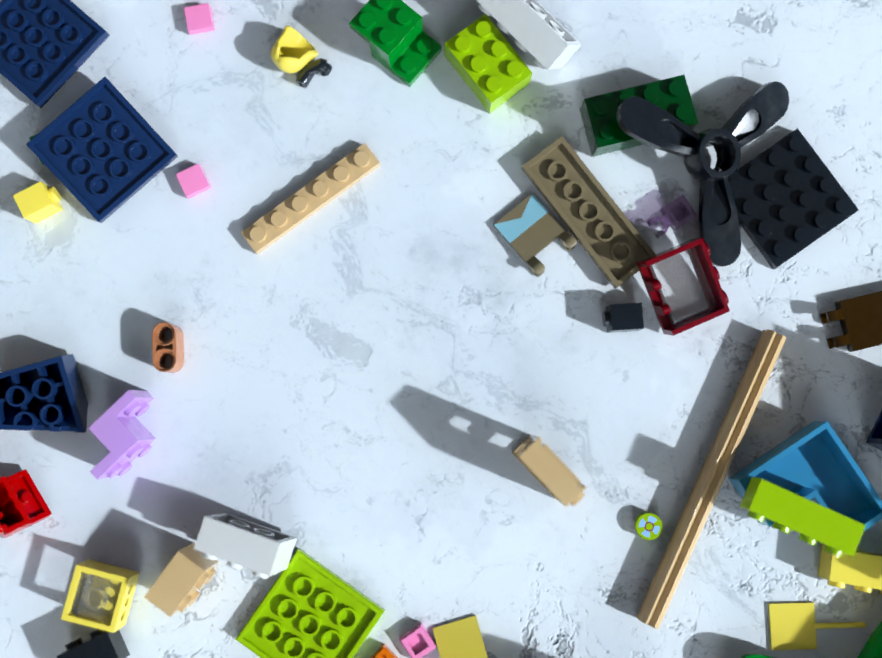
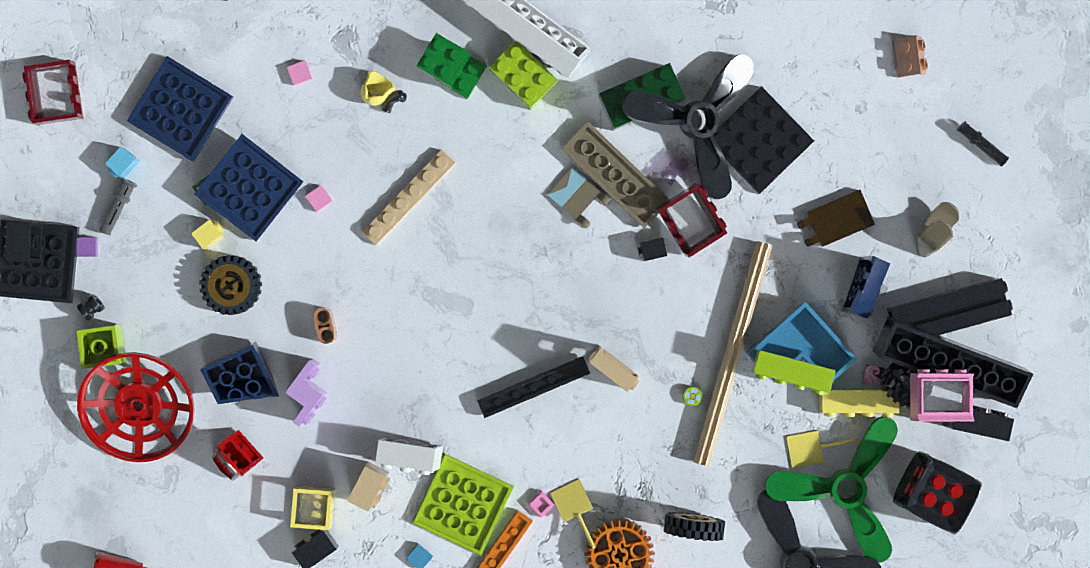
camera: 10 degrees left, 5 degrees up
(39, 261) = (219, 270): none -> wheel
(433, 477) = (533, 387): none -> black plate

